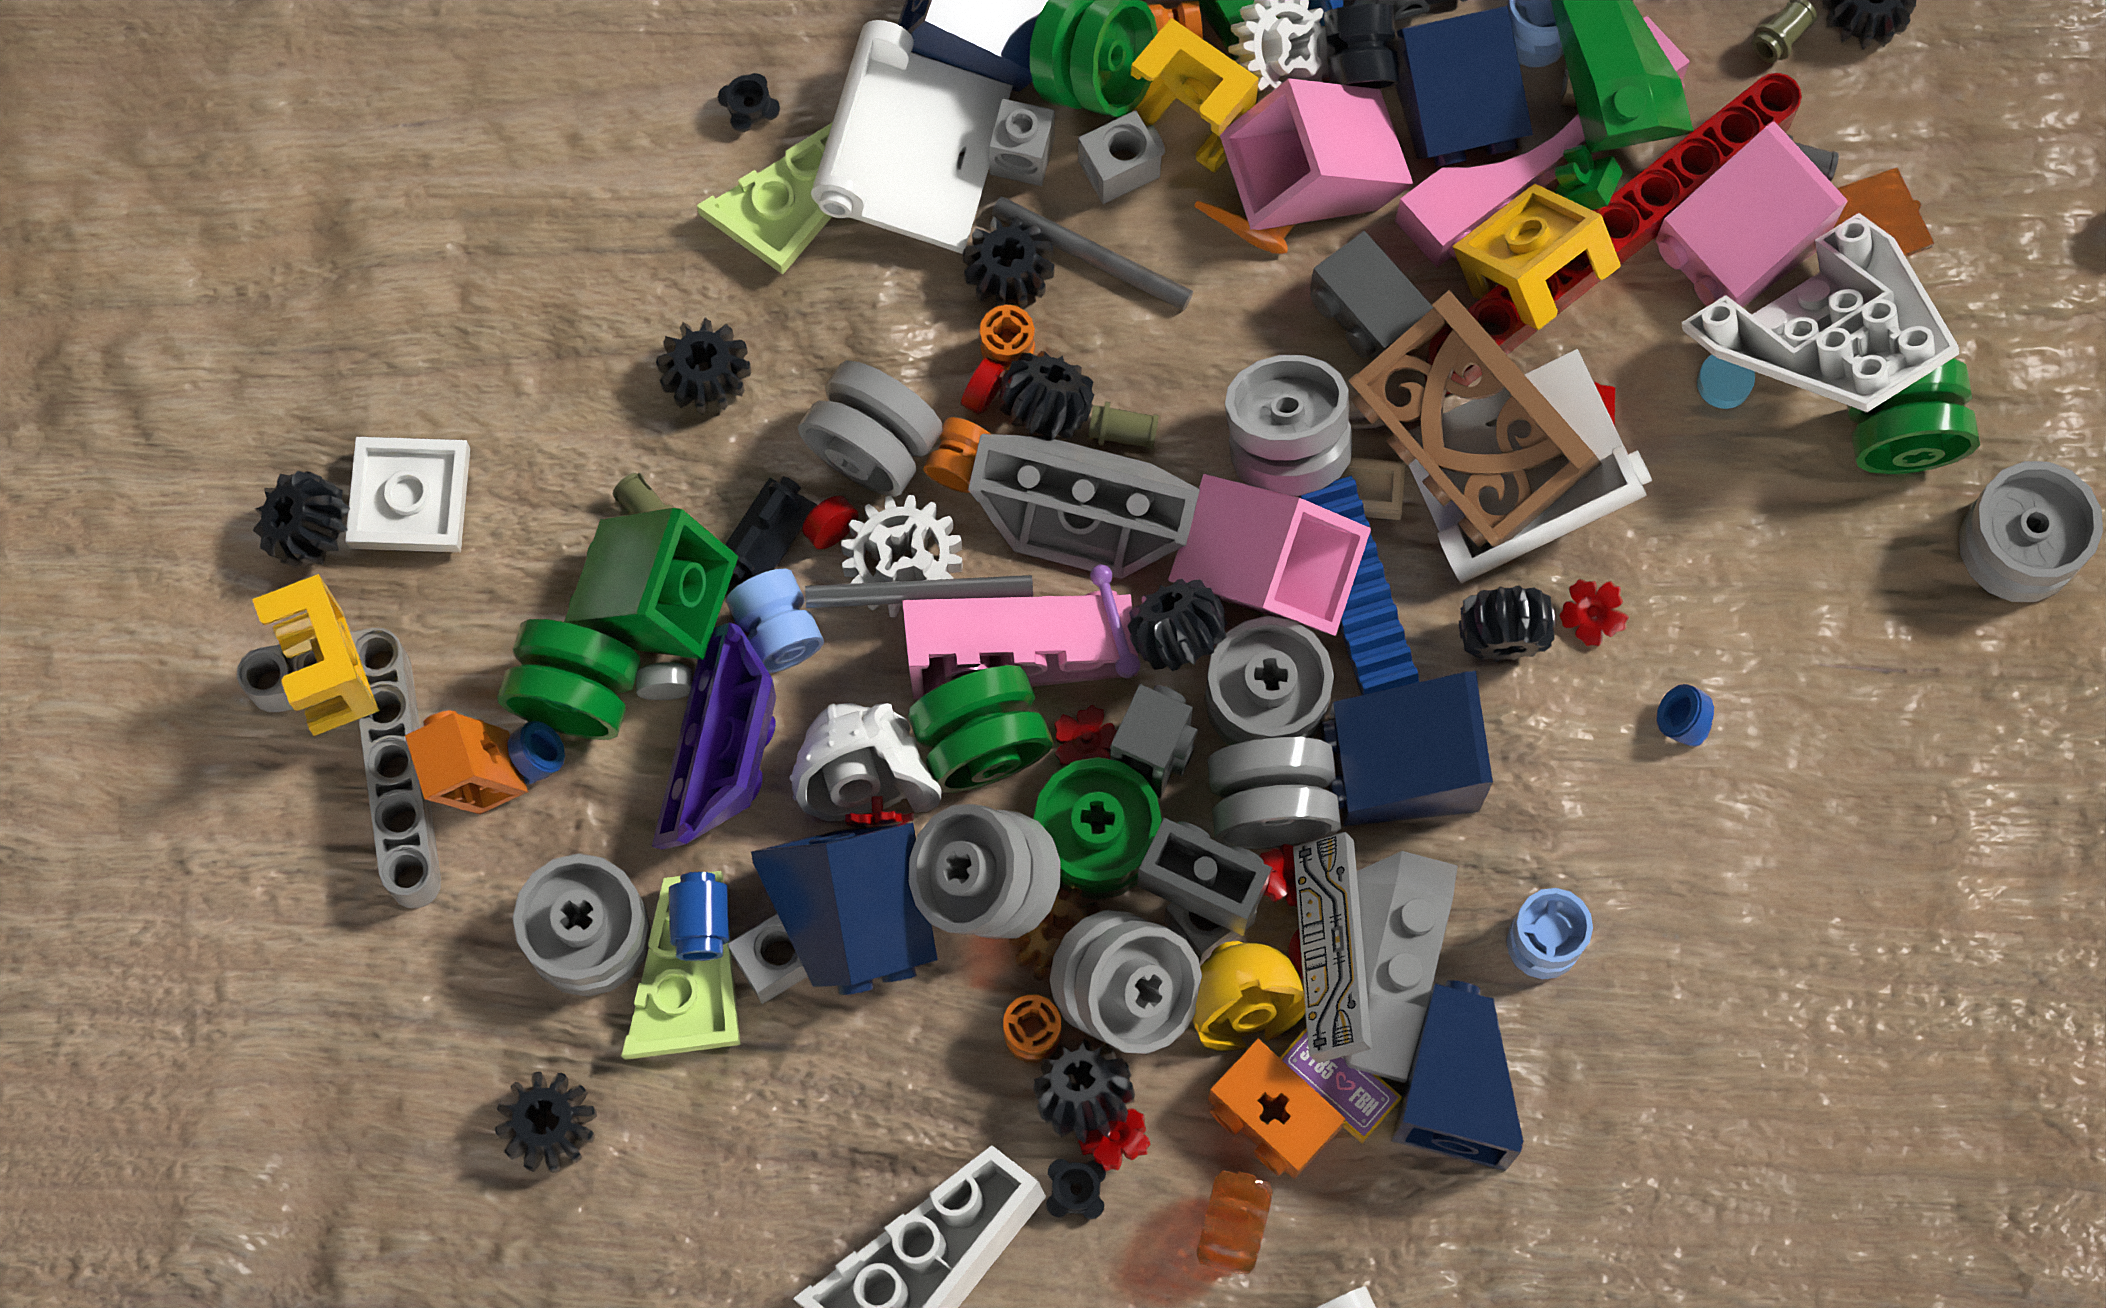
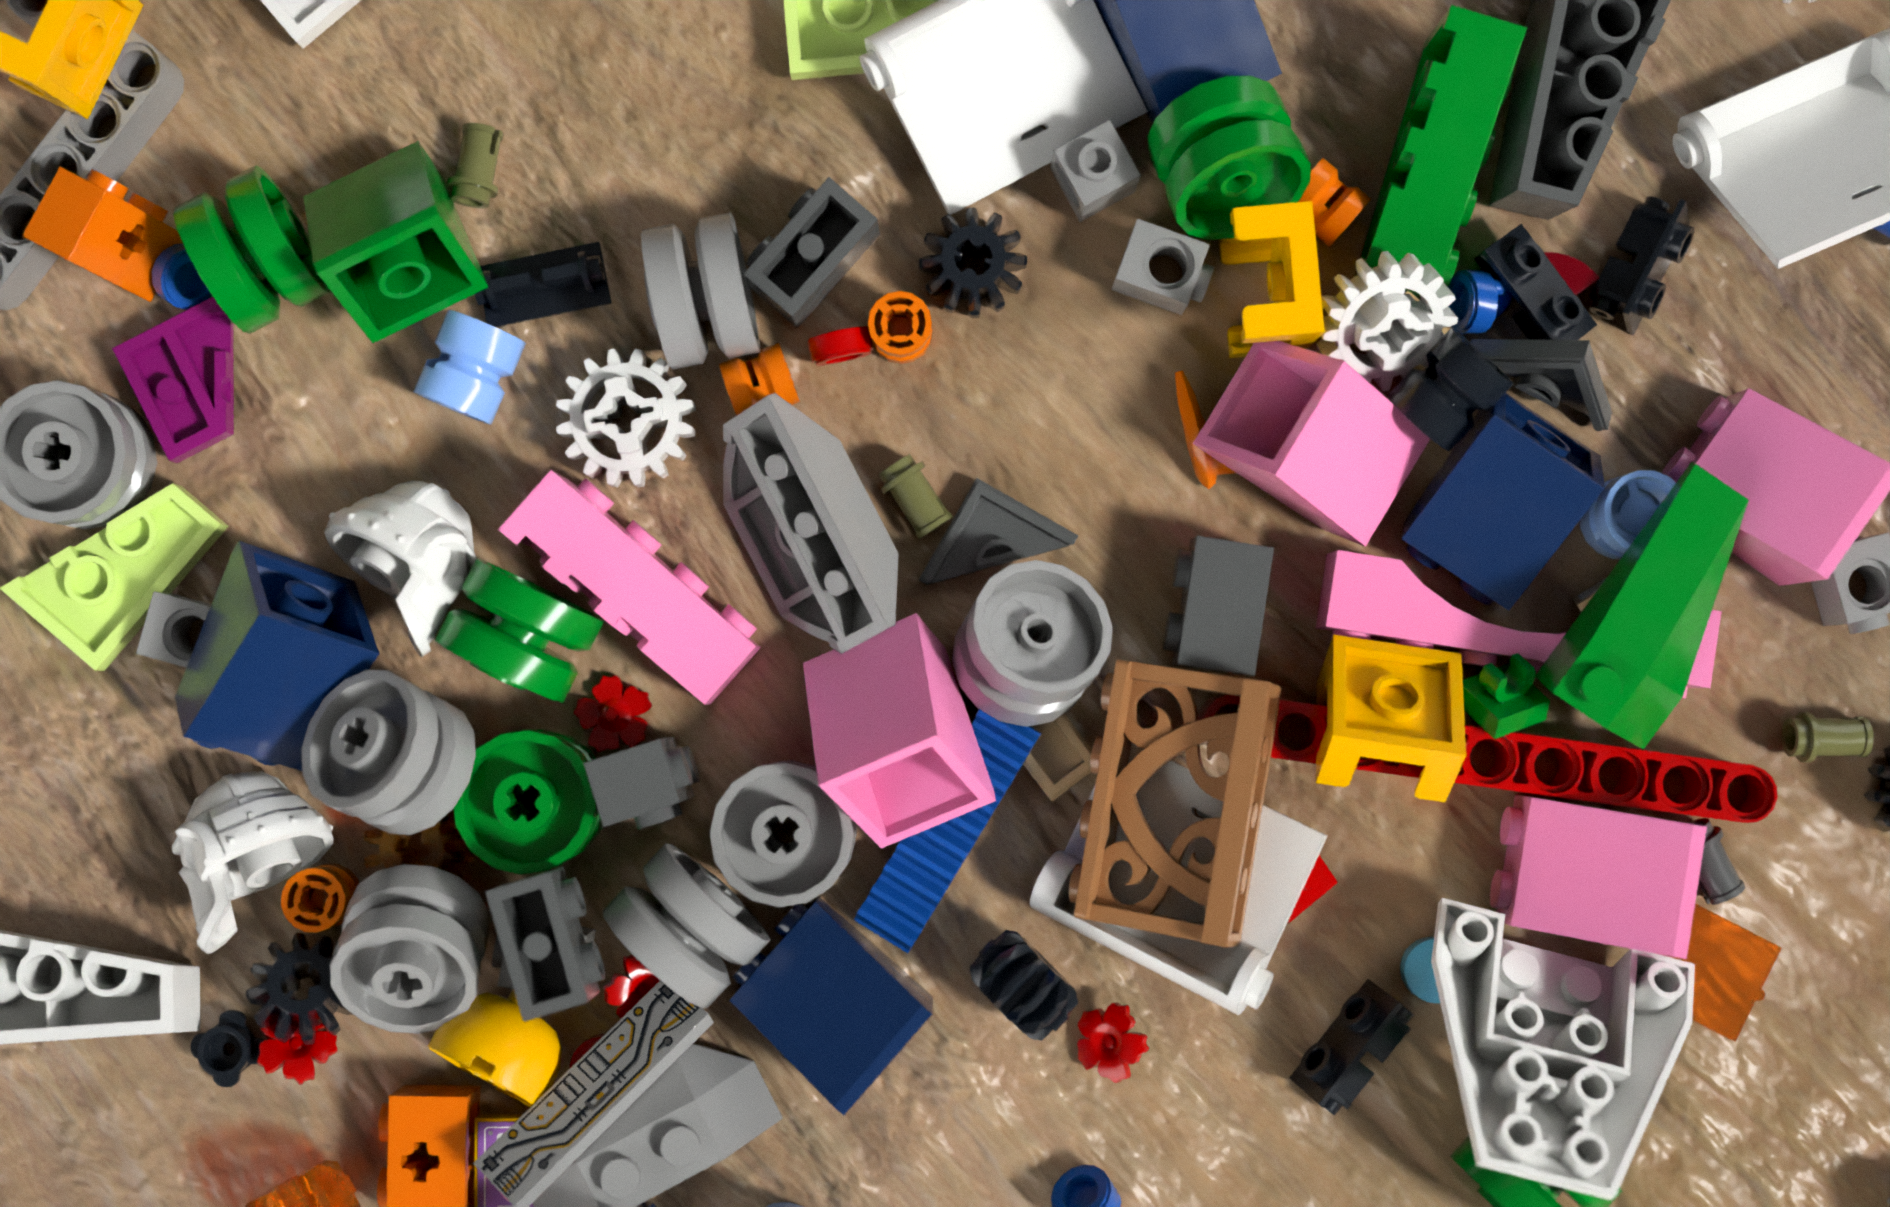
camera: 50 degrees right, 15 degrees up
(598, 812) = (185, 378): none -> magenta wing
(664, 681) = (338, 324): light grey tile -> none
(683, 373) = (633, 74): black gear -> none
(698, 917) = (151, 548): blue brick -> none
(719, 740) = (316, 425): dark purple wedge -> none
(829, 522) = (602, 329): red tile -> none
(877, 816) = (376, 614): red plant -> none
(894, 592) = (597, 466): dark grey bar -> none
(909, 338) = (811, 251): none -> dark grey brick
(949, 1037) = (241, 841): none -> white head
(1046, 395) = (875, 409): black gear -> none
(1096, 254) = (1053, 323): flat silver bar -> none
(1128, 663) = (687, 701): medium lavender hinge -> none
(1177, 624) = (754, 716): black gear -> none
(1190, 404) = (992, 532): none -> dark grey tile
(1726, 447) = (1332, 1066): none -> black hinge

